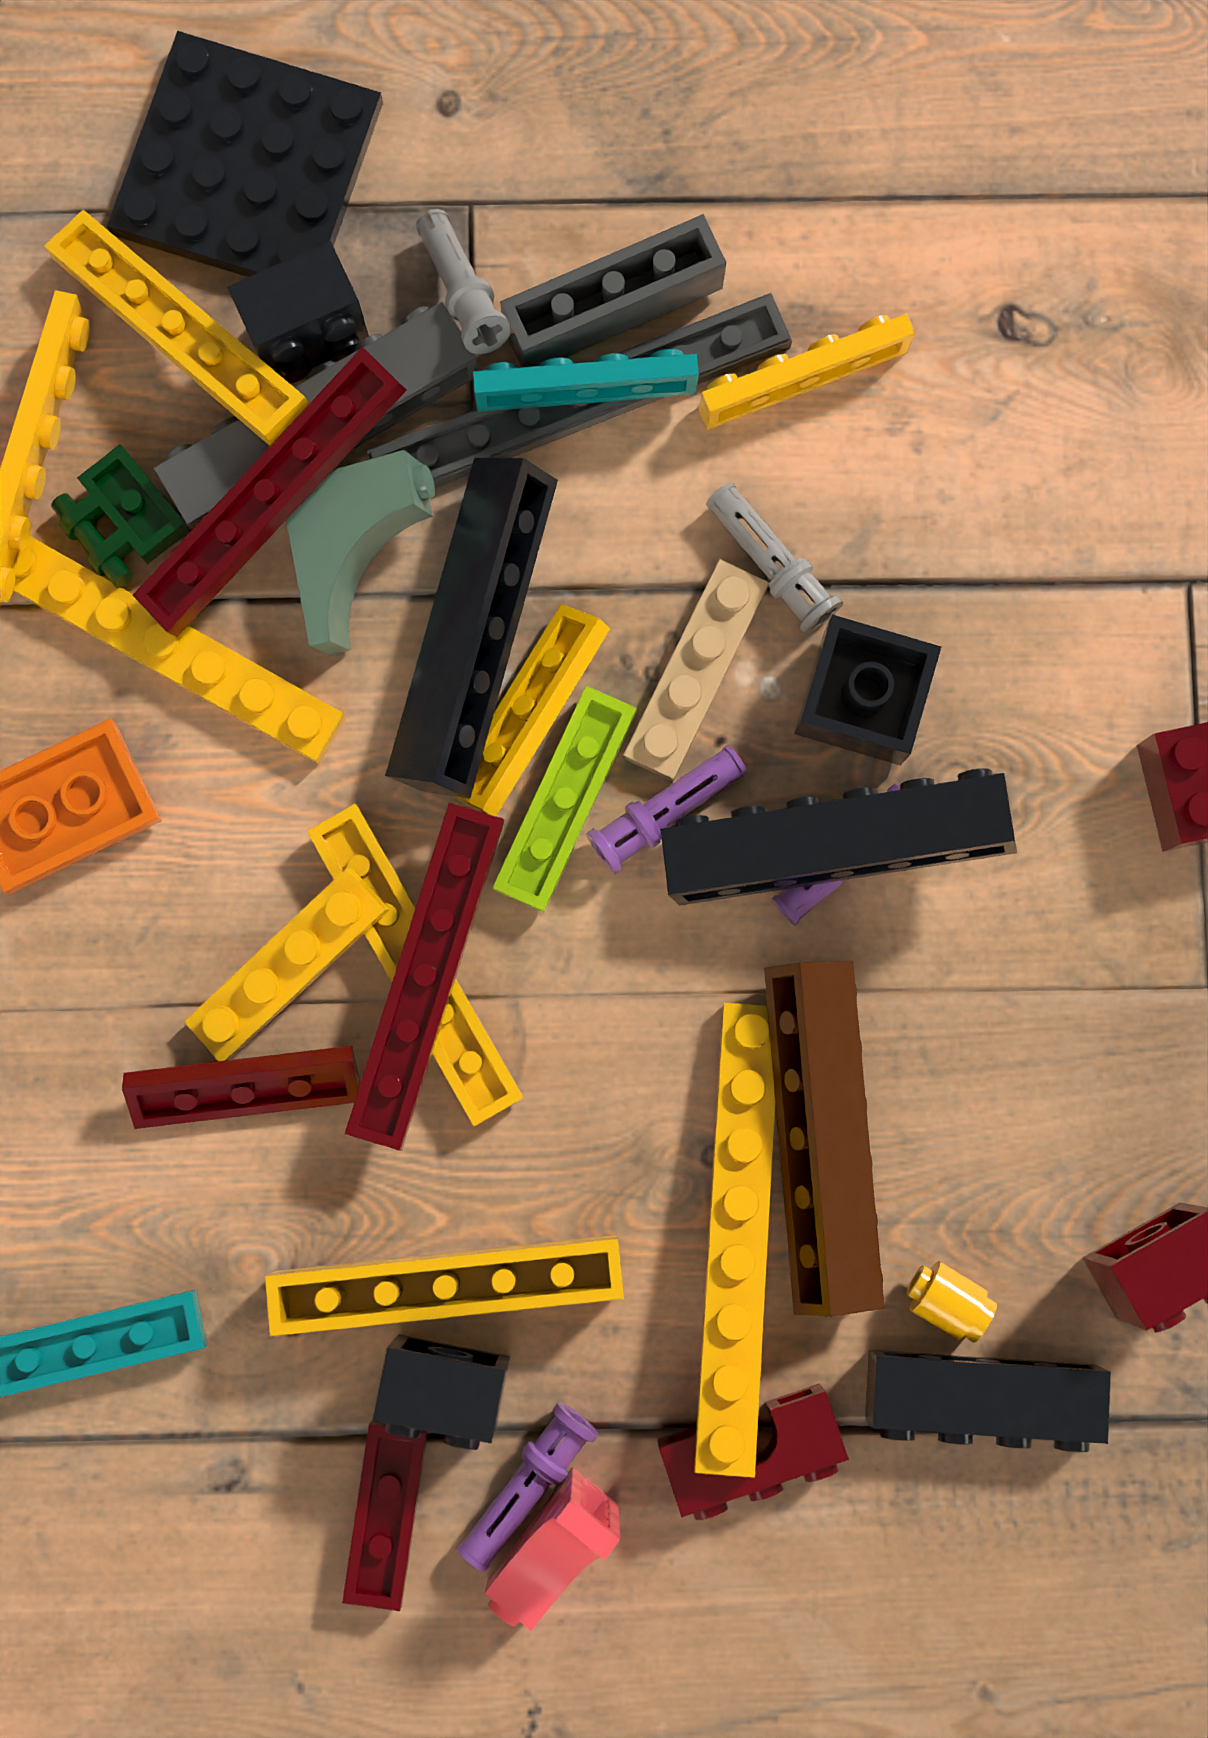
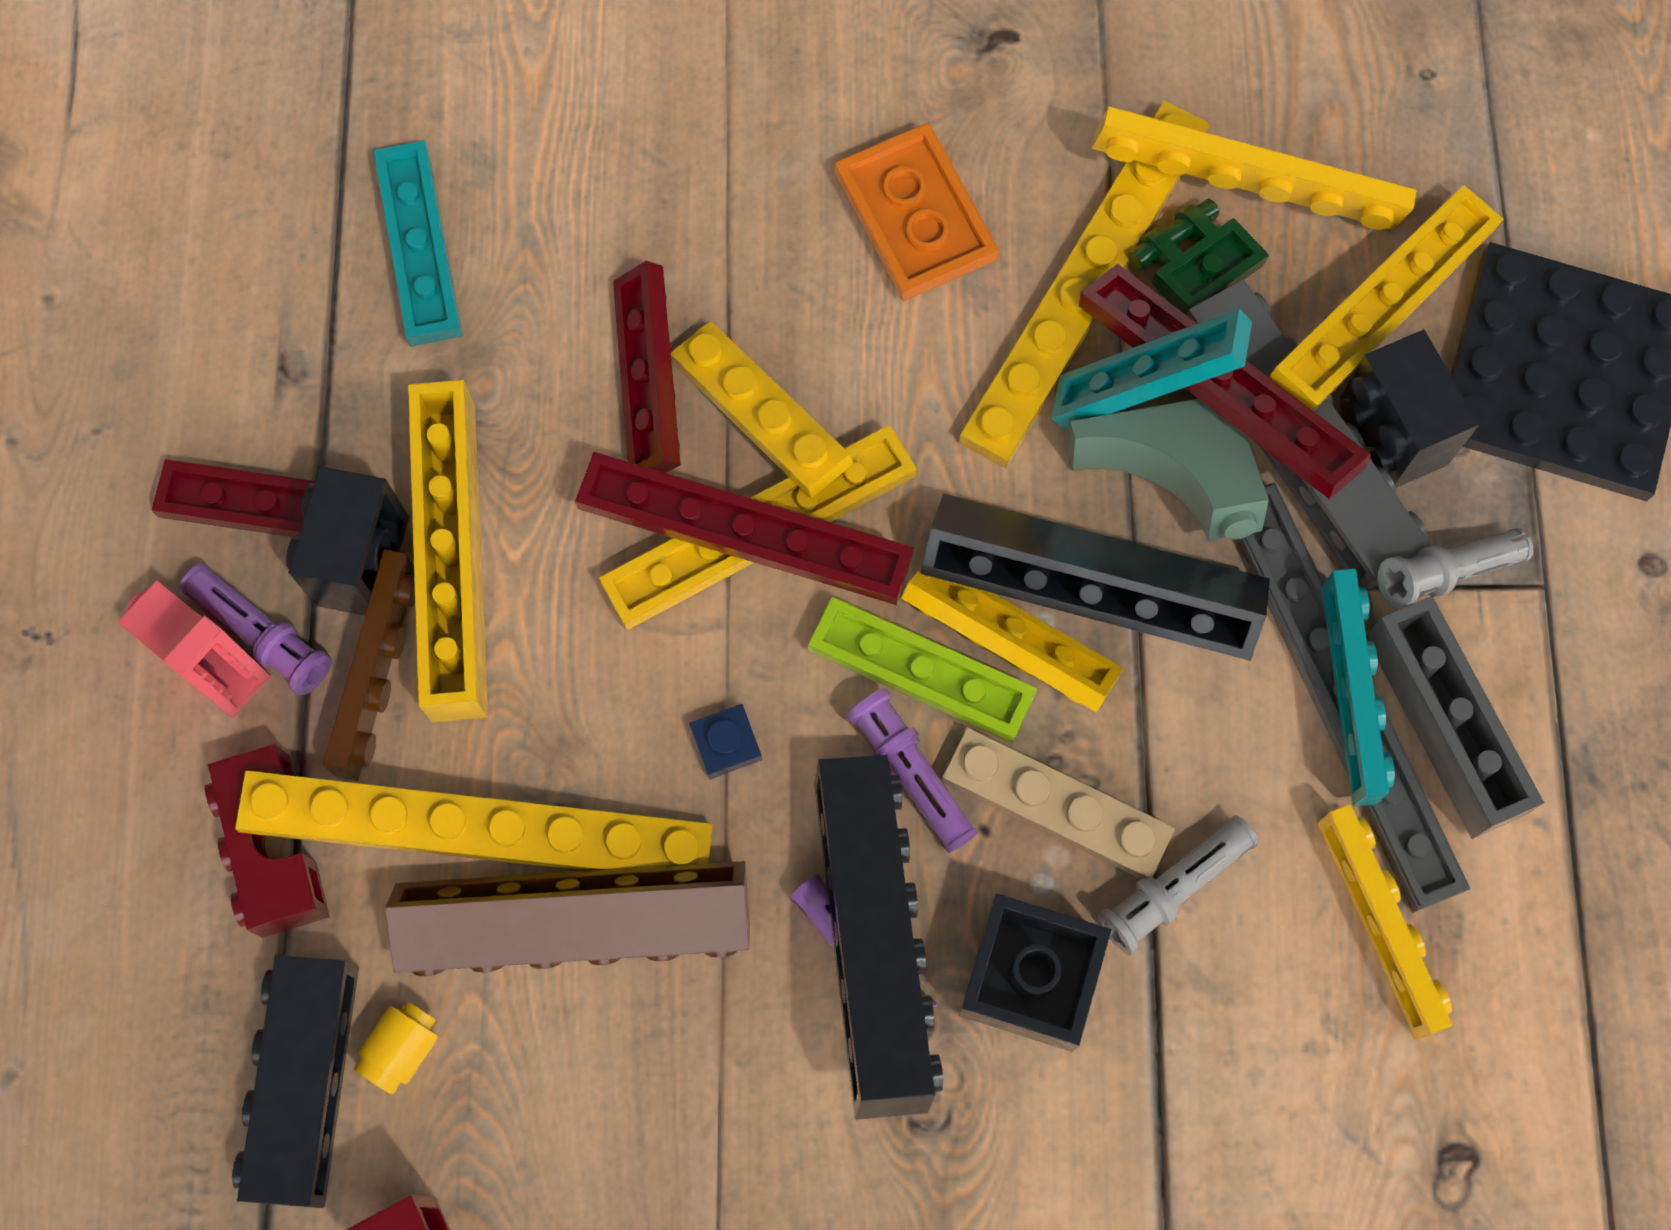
camera: 95 degrees right, 10 degrees down
(264, 557) = (1153, 368): none -> teal plate
(592, 1360) = (367, 683): none -> reddish brown plate
(638, 993) = (726, 741): none -> dark blue plate

